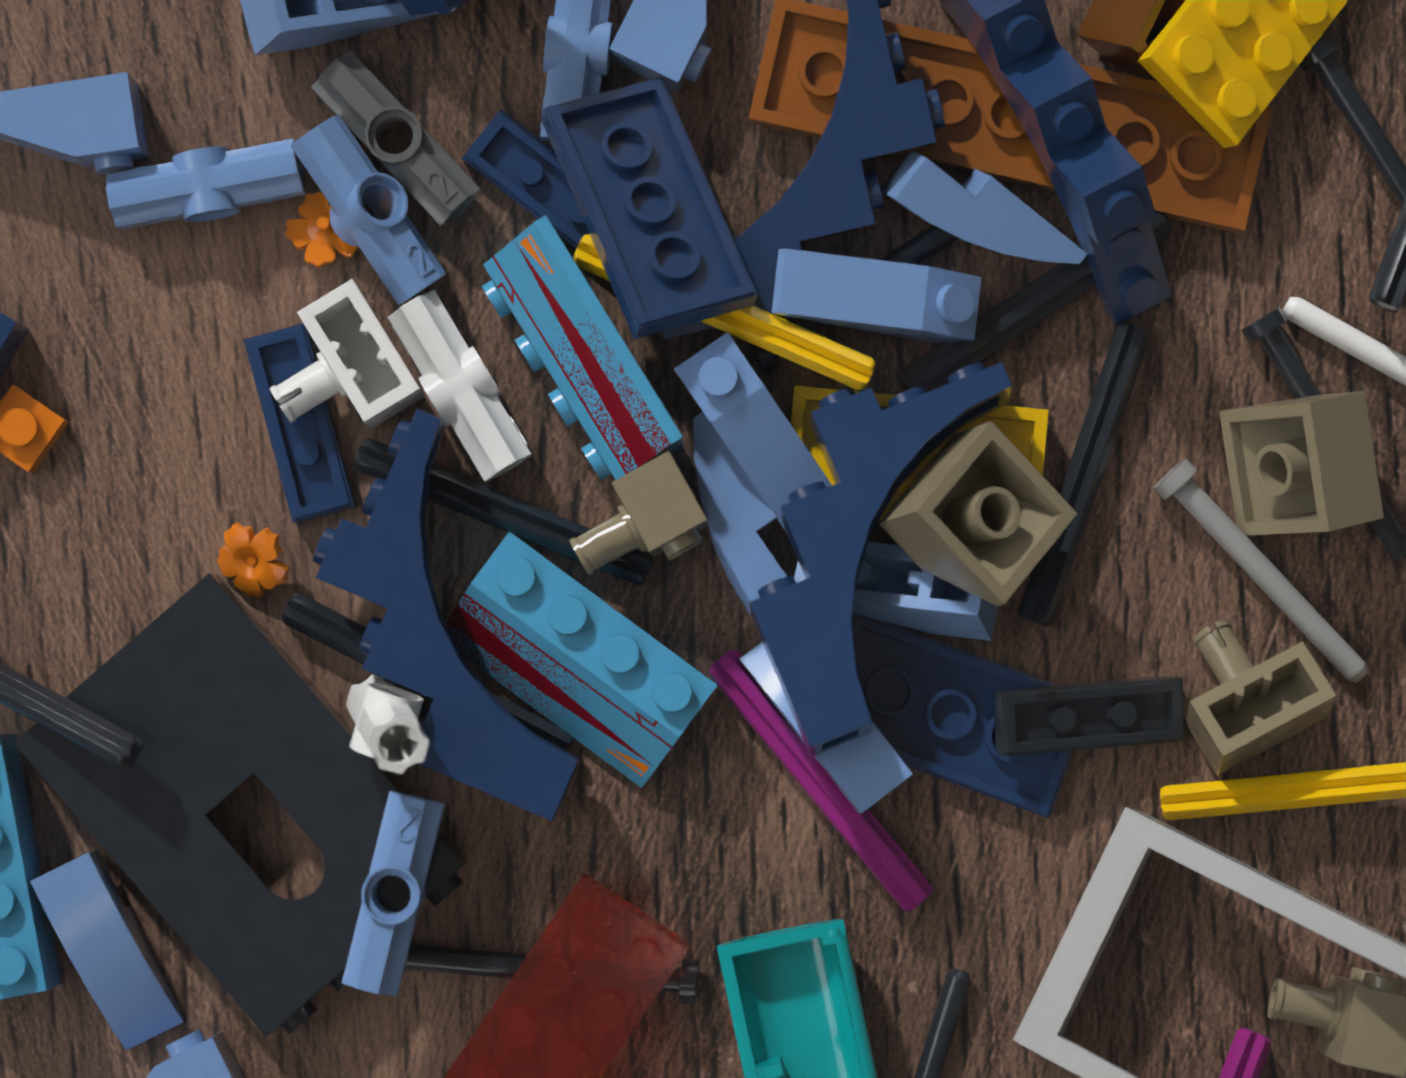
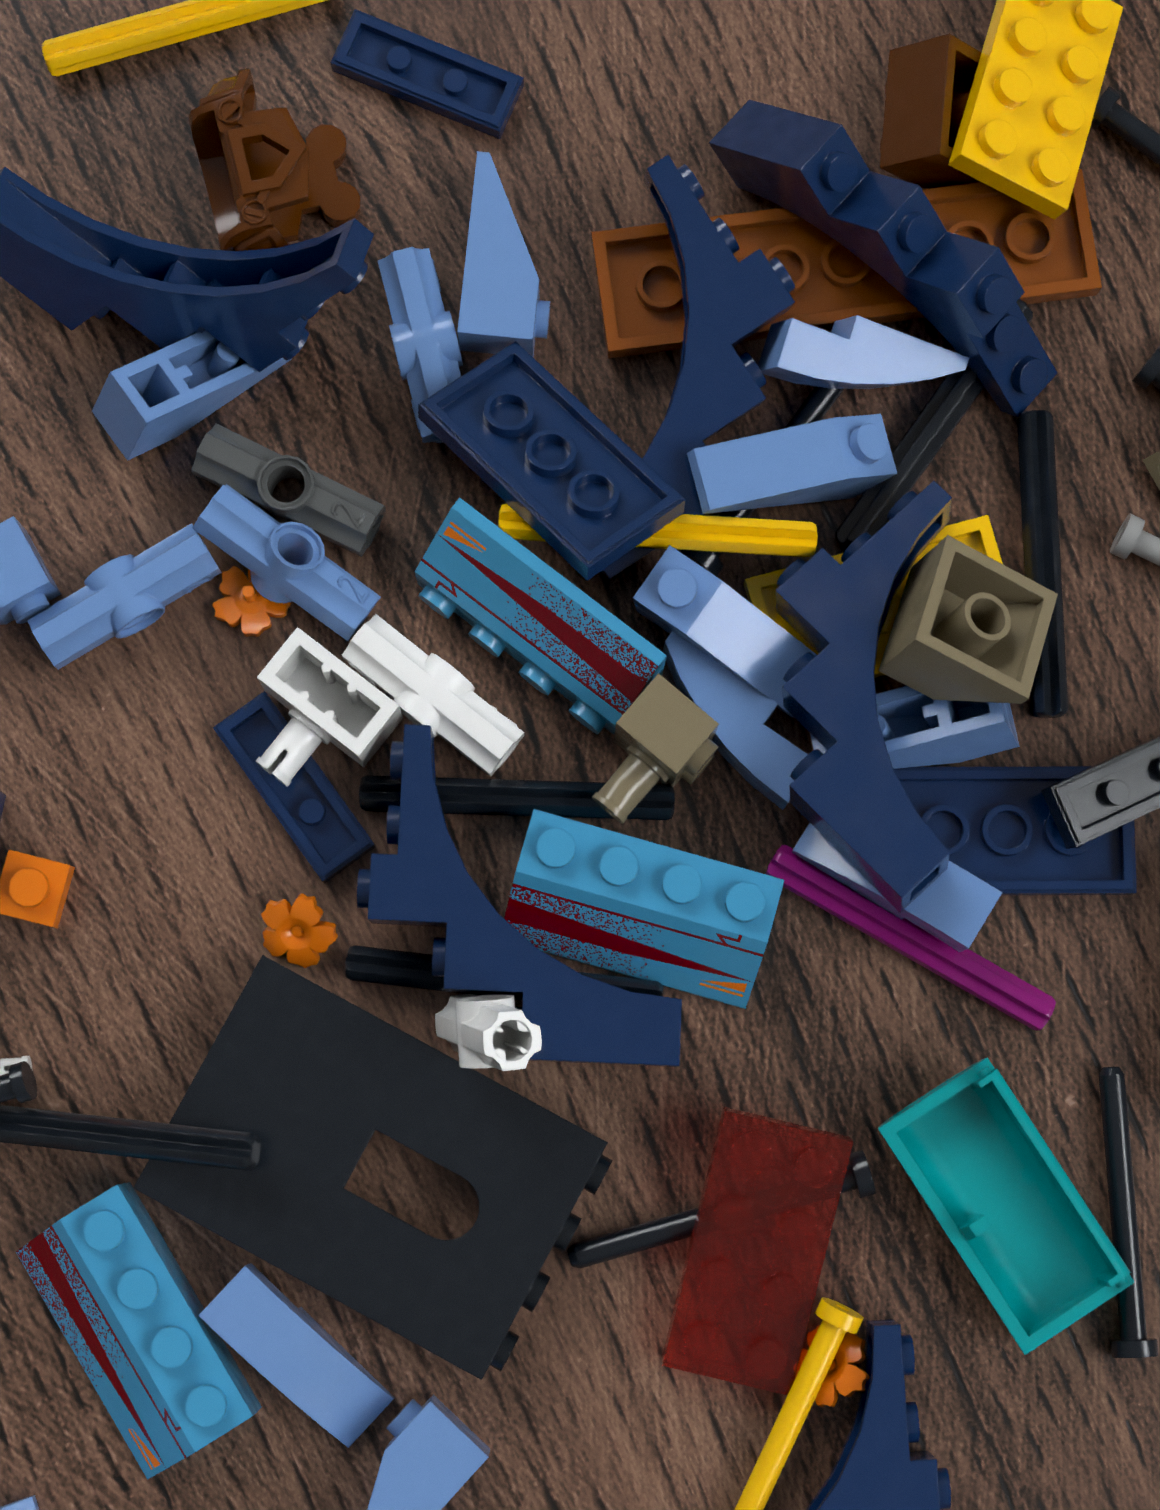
camera: 25 degrees left, 5 degrees down
(384, 935) = (557, 1237): medium blue piece -> none
(527, 174) = (424, 478): dark blue tile -> none

